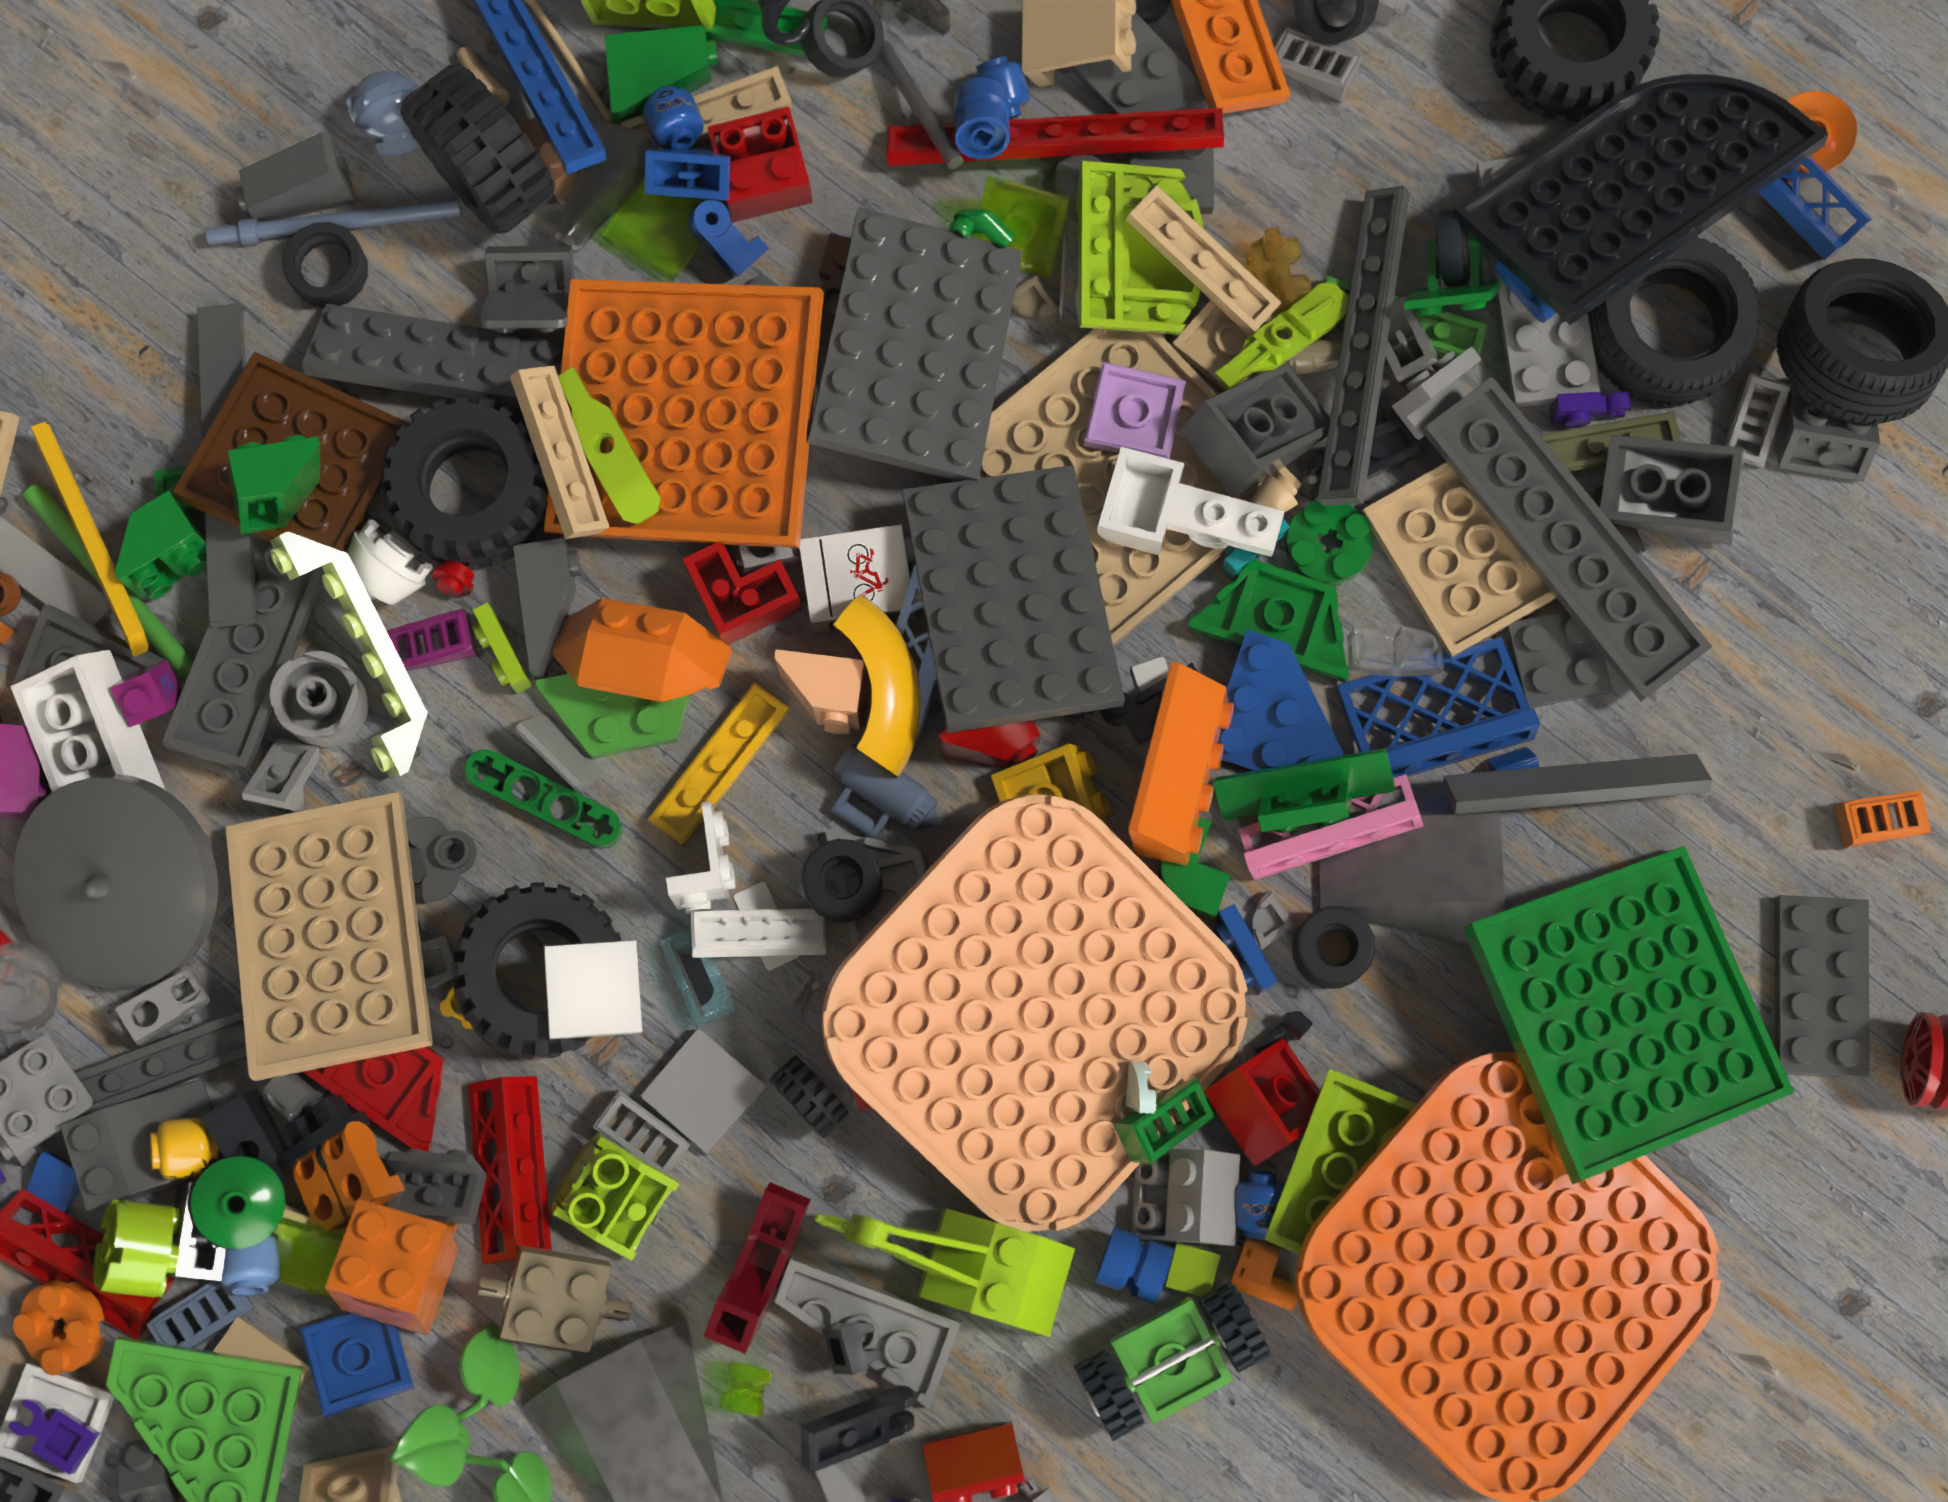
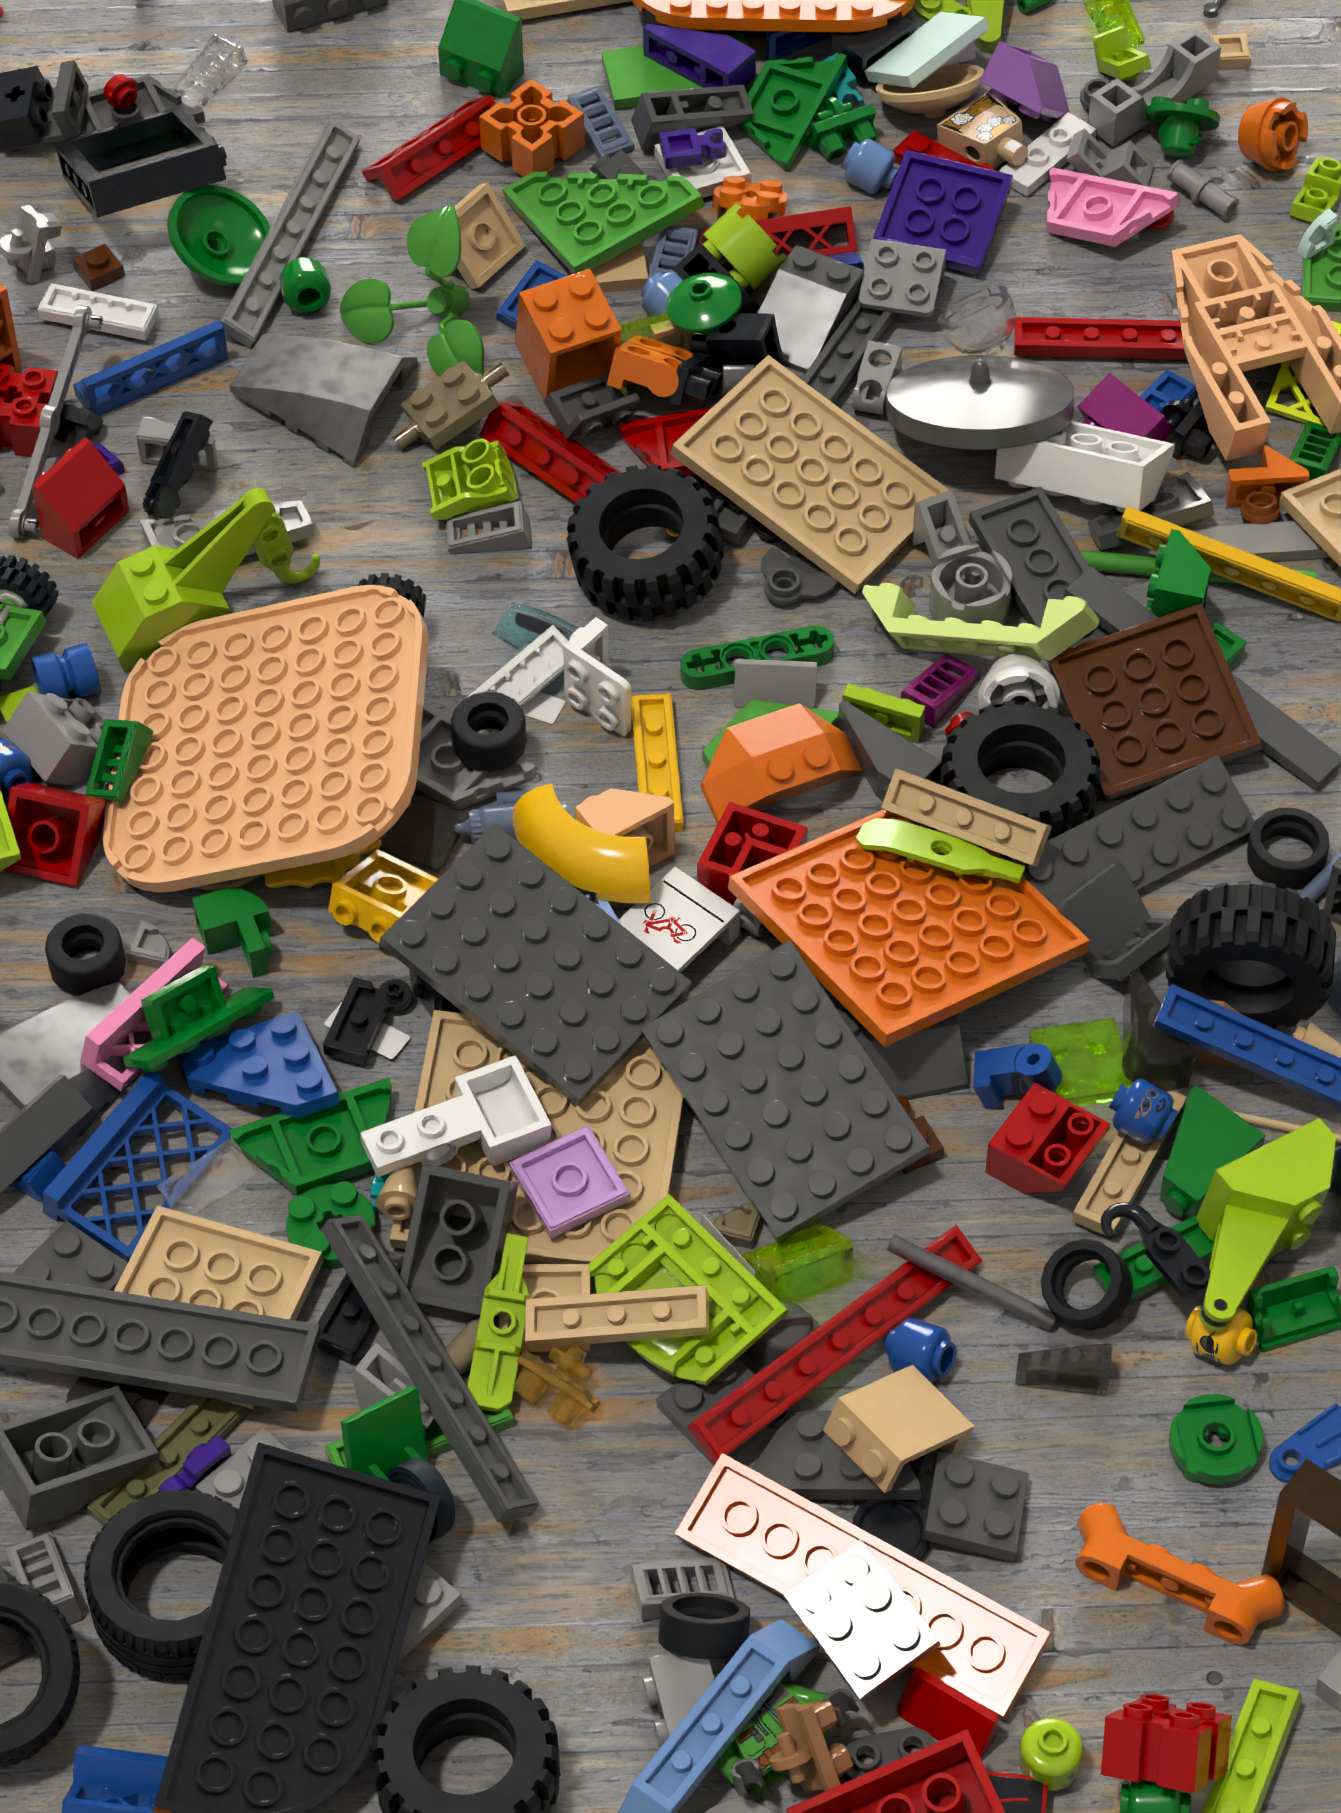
camera: 140 degrees right, 25 degrees down
(147, 693) = (1085, 507): magenta brick -> none
(182, 1148) = (778, 300): yellow head -> none
(272, 481) = (1137, 637): green slope -> none
(592, 989) = (590, 534): white tile -> none
(687, 173) = (1088, 1077): blue slope -> none
(703, 1091) = (468, 581): light grey tile -> none
(745, 1388) = (276, 449): clear neon green wheel -> none
(758, 1269) = (326, 497): dark red arch -> none
(846, 1347) = (217, 497): black tile -> none
(981, 118) = (901, 1284): blue wheel -> none
(982, 222) = (822, 1224): green arm -> none
(1137, 1094) = (150, 752): light aqua tile -> none
(1179, 766) = (304, 947): orange slope -> none
(1236, 935) = (137, 903): blue plate -> none
(1295, 1024) = (75, 896): black hand -> none
(1436, 393) = (331, 1385): light grey bracket -> none

